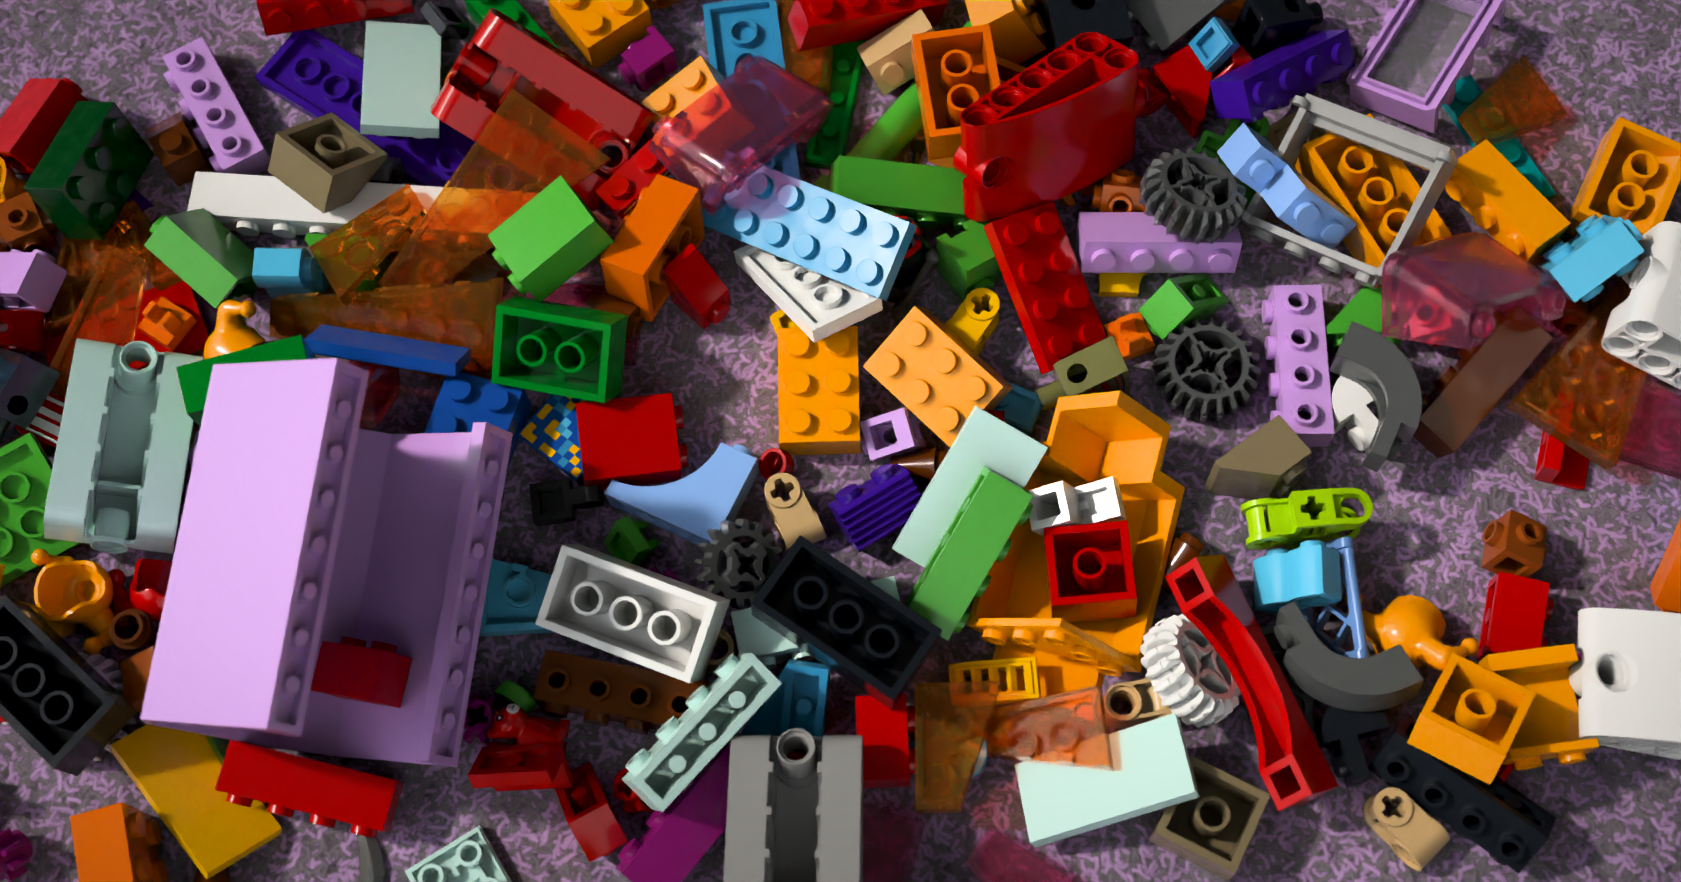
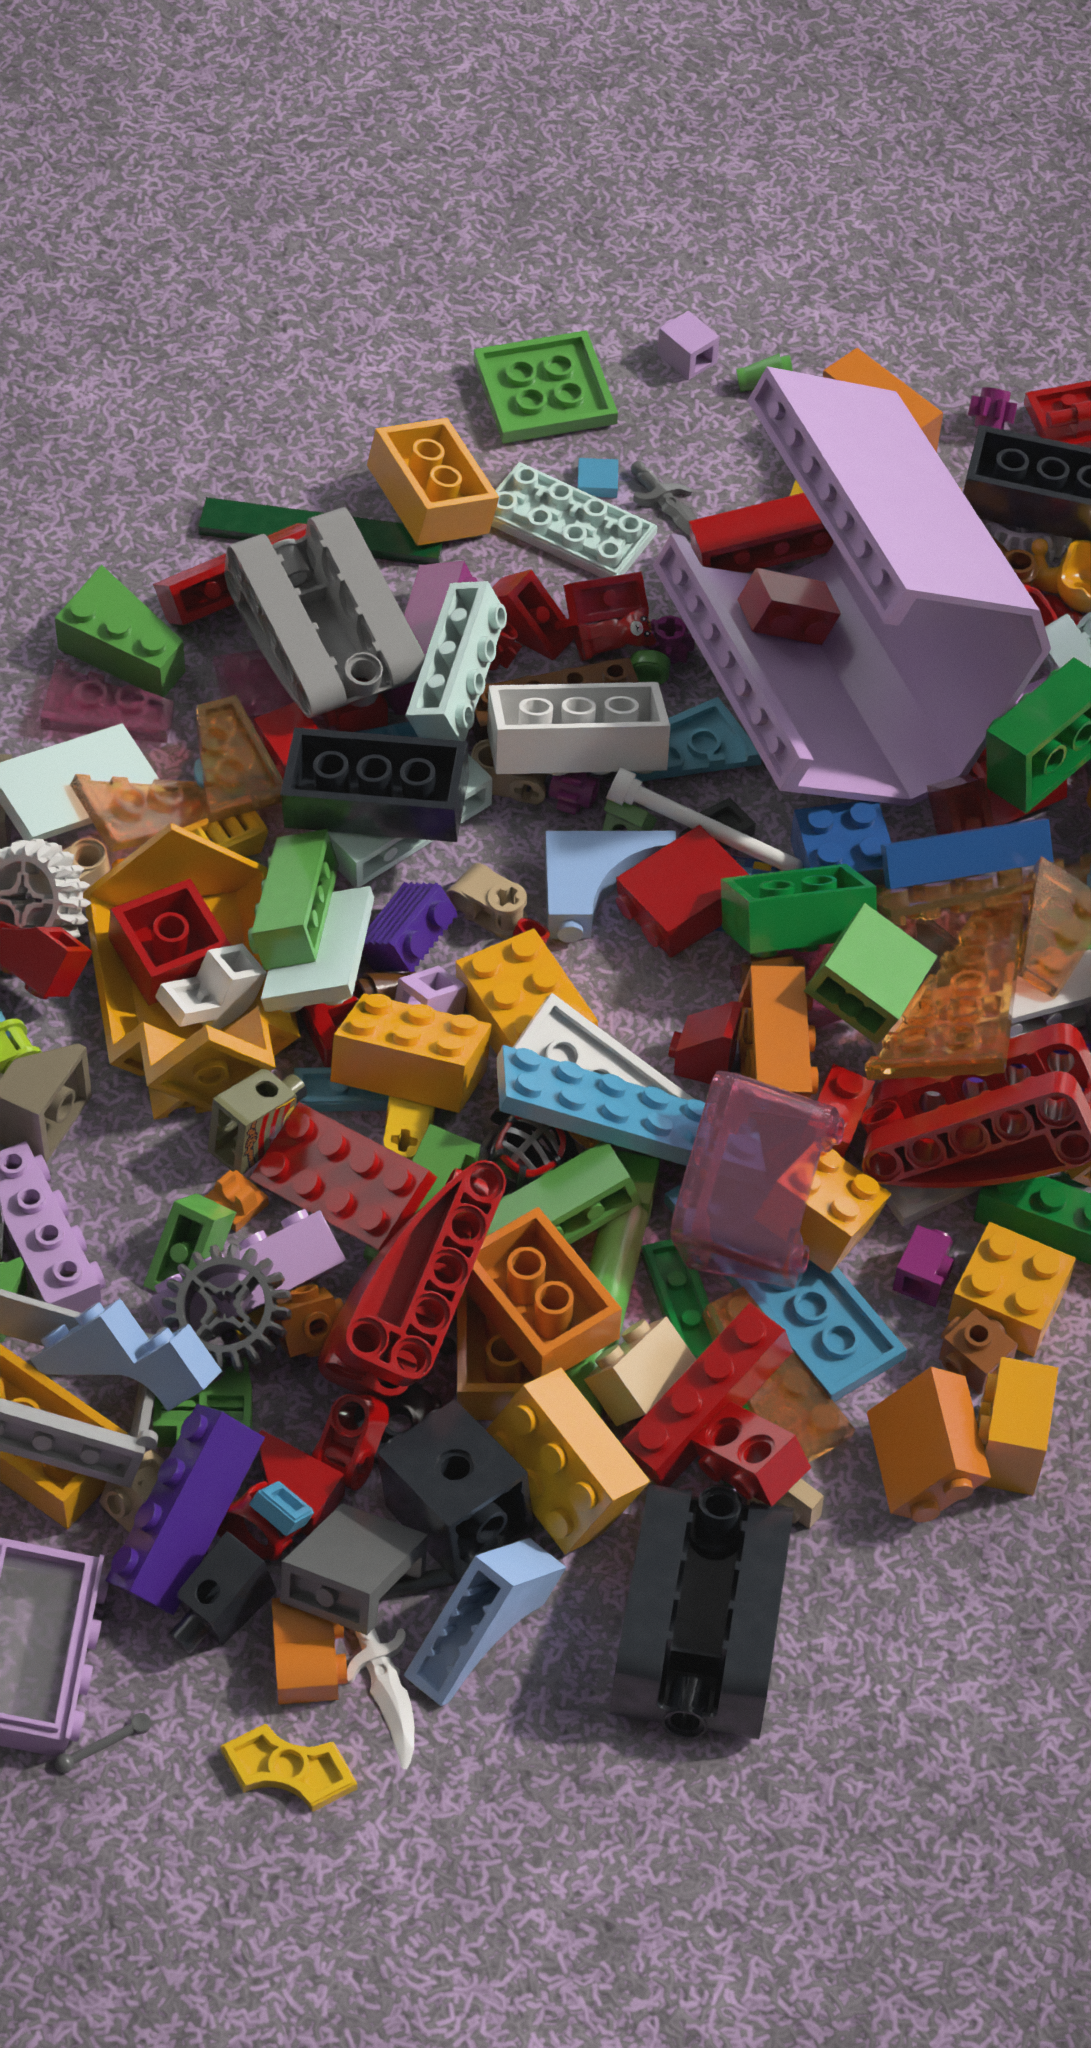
camera: 145 degrees right, 15 degrees down
(624, 539) = (629, 790): none -> white piece
(722, 561) = (512, 831): dark grey gear -> none
(1182, 551) = (82, 1013): reddish brown cone -> none
(1220, 396) = (134, 1176): dark grey gear -> none

